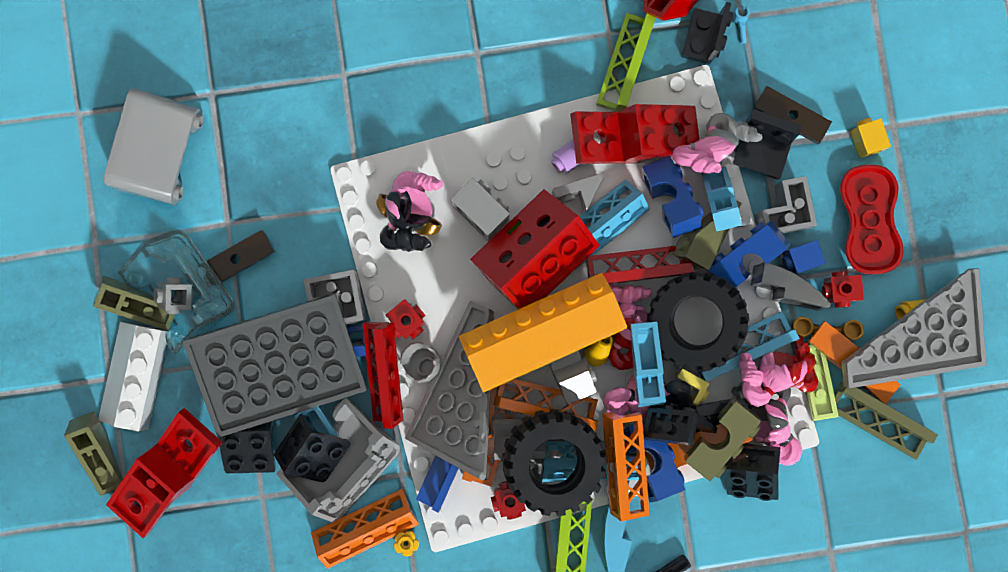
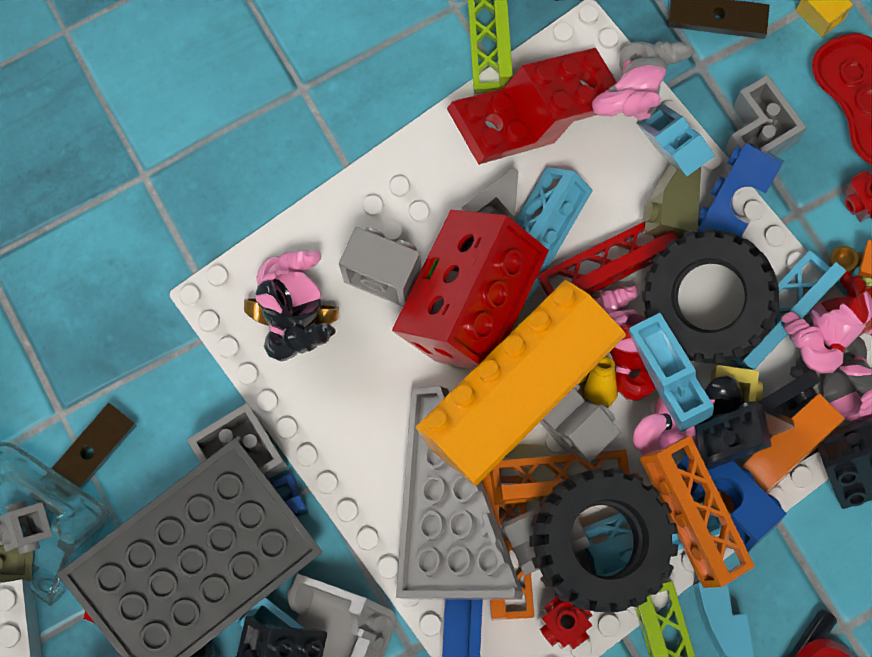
camera: 15 degrees left, 10 degrees down
(387, 373) = (339, 518): red fence -> none
(405, 310) = (331, 433): red brick -> none
(420, 362) = (378, 489): light grey hair -> none
(564, 158) = (462, 168): lavender brick -> none
(665, 179) = (634, 172): blue arch -> none
(711, 458) = (819, 401): olive arch -> none
(770, 153) = (711, 67): black bracket -> none
(788, 287) = (805, 218): dark grey slope -> none
(803, 257) = (807, 177): blue brick -> none

